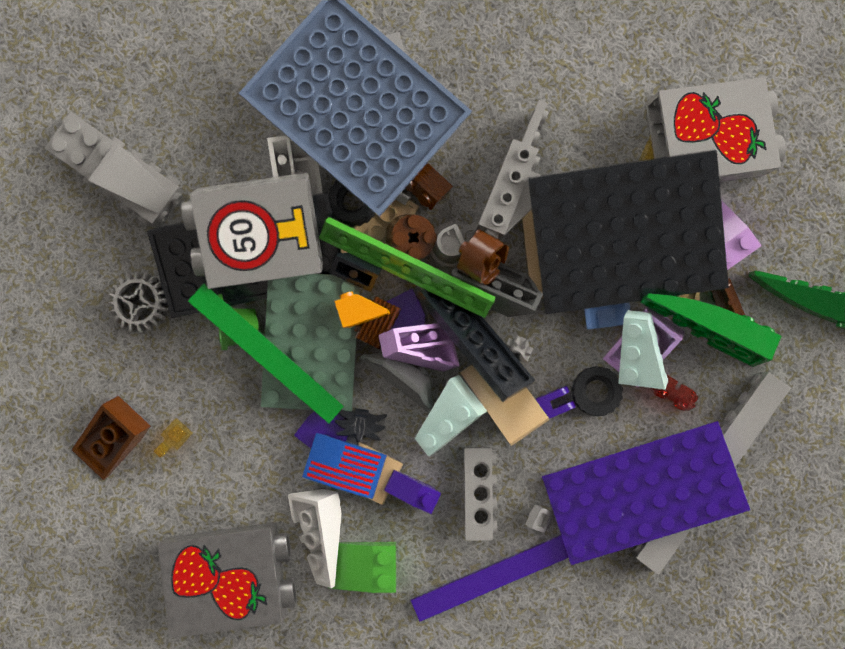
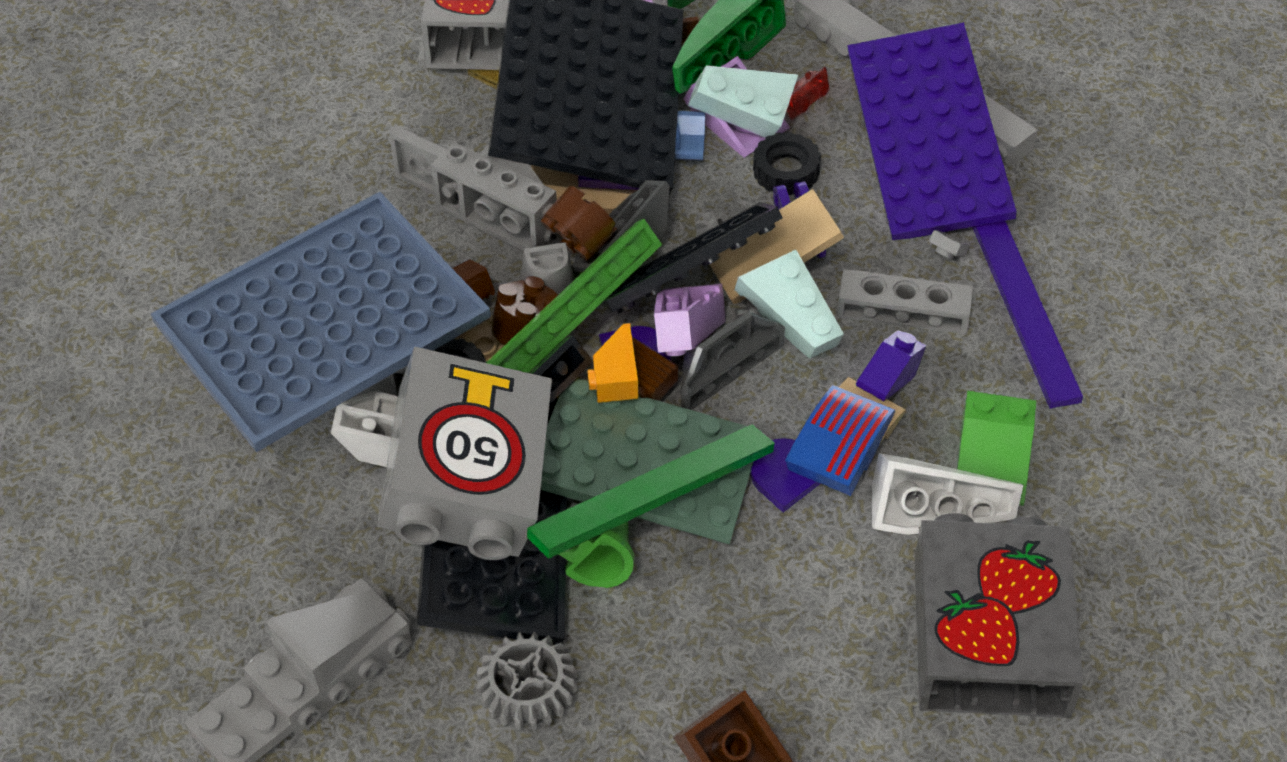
camera: 75 degrees left, 35 degrees down
(175, 436) = (757, 669): clear yellow plate -> none
(360, 423) = (782, 421): black piece -> none

